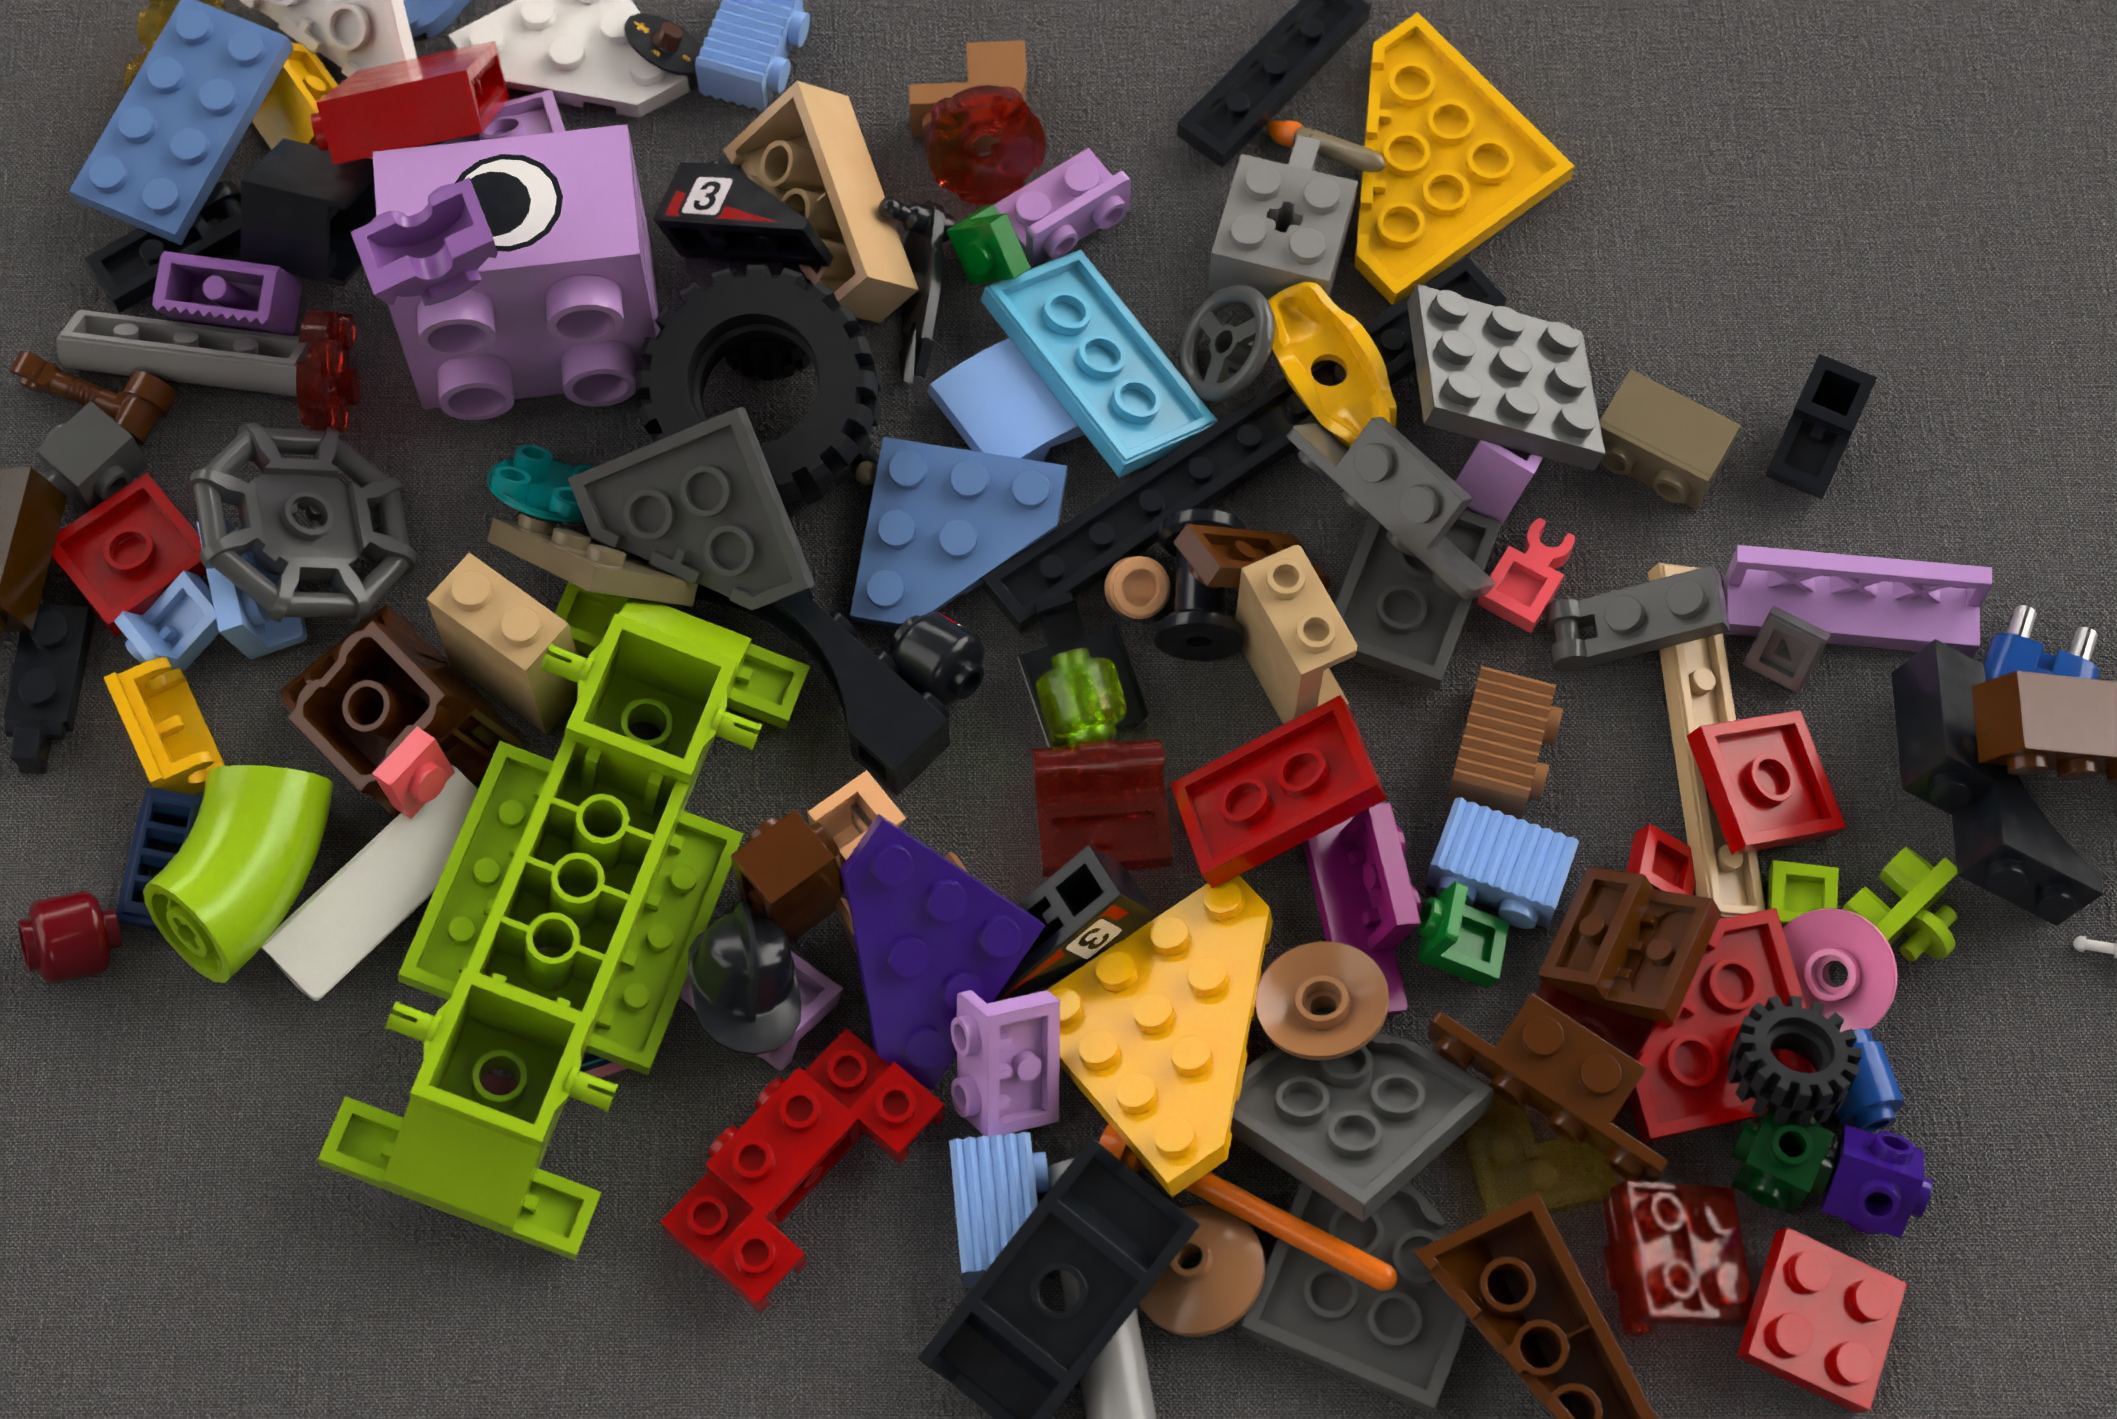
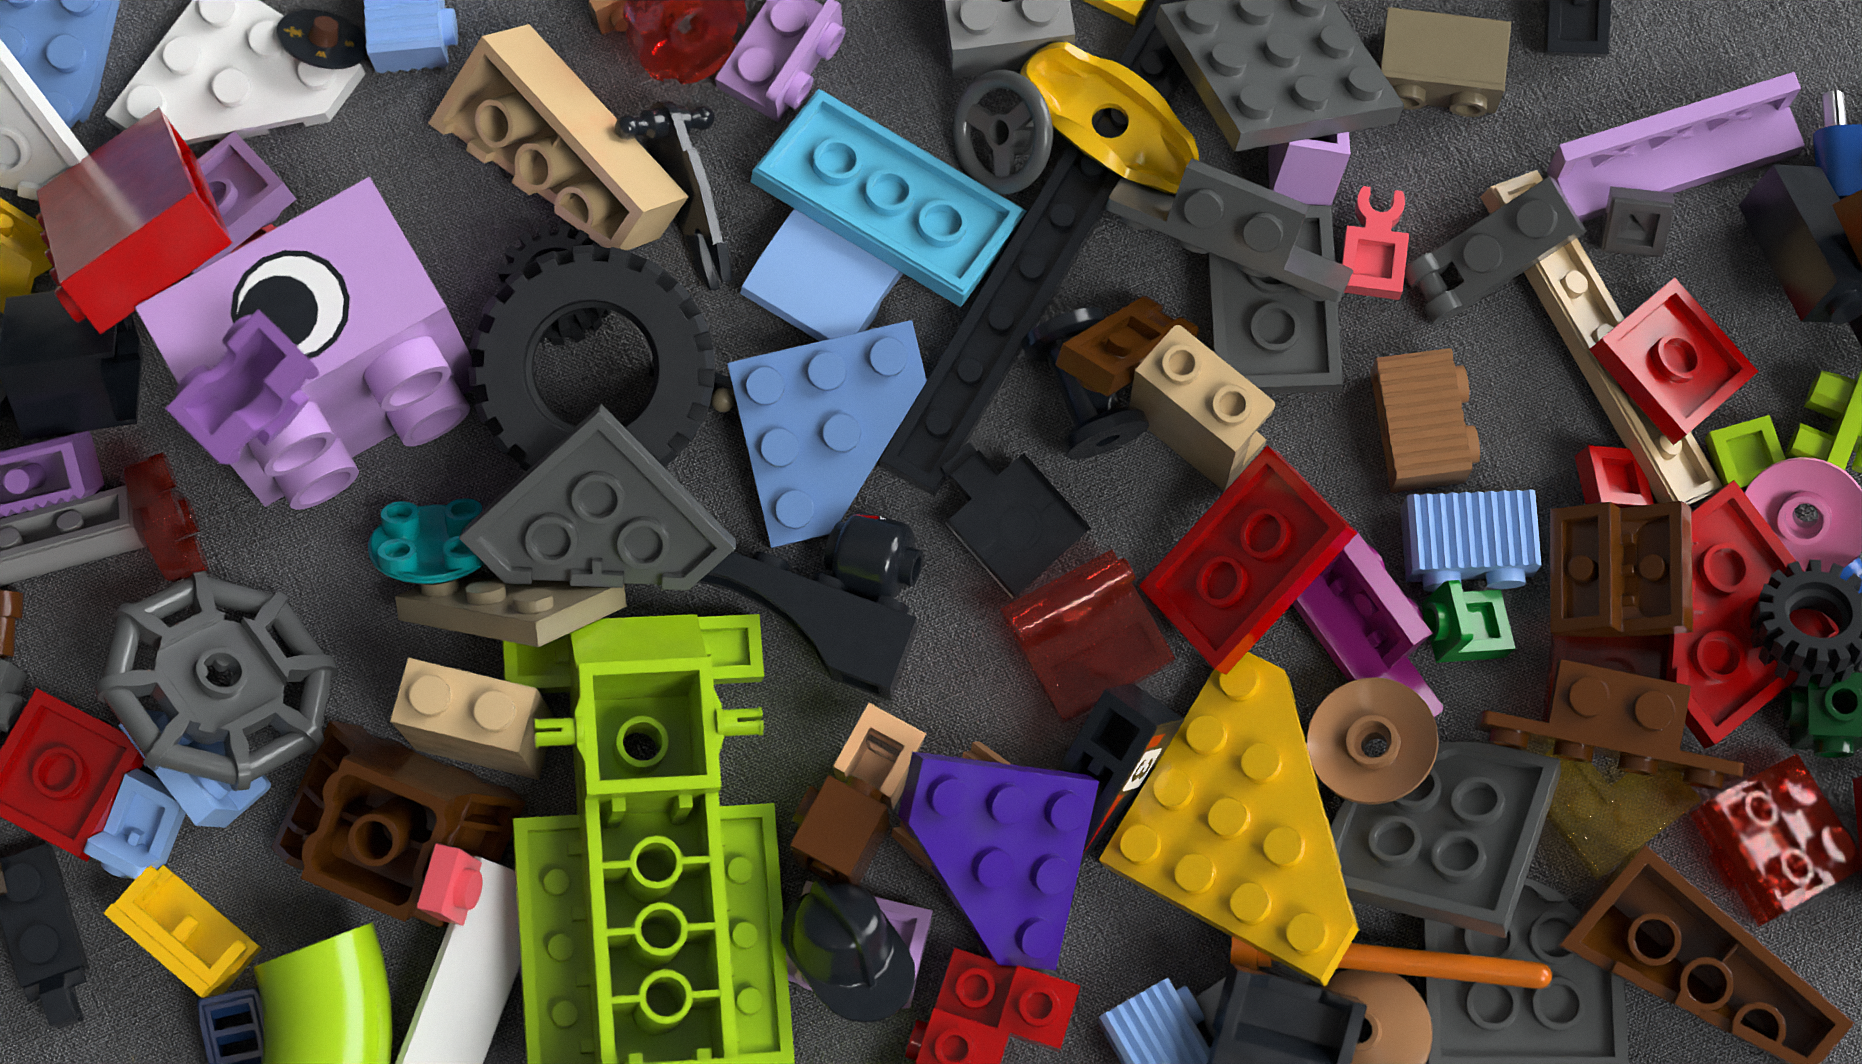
camera: 20 degrees left, 10 degrees up
(727, 216) = (468, 197): black slope -> none
(988, 247) = (736, 126): green bracket -> none
(1007, 1062) = (1117, 921): lavender bracket -> none
(1081, 697) = (1027, 543): clear neon green head -> none
(1137, 587) = (1024, 407): light nougat tile -> none

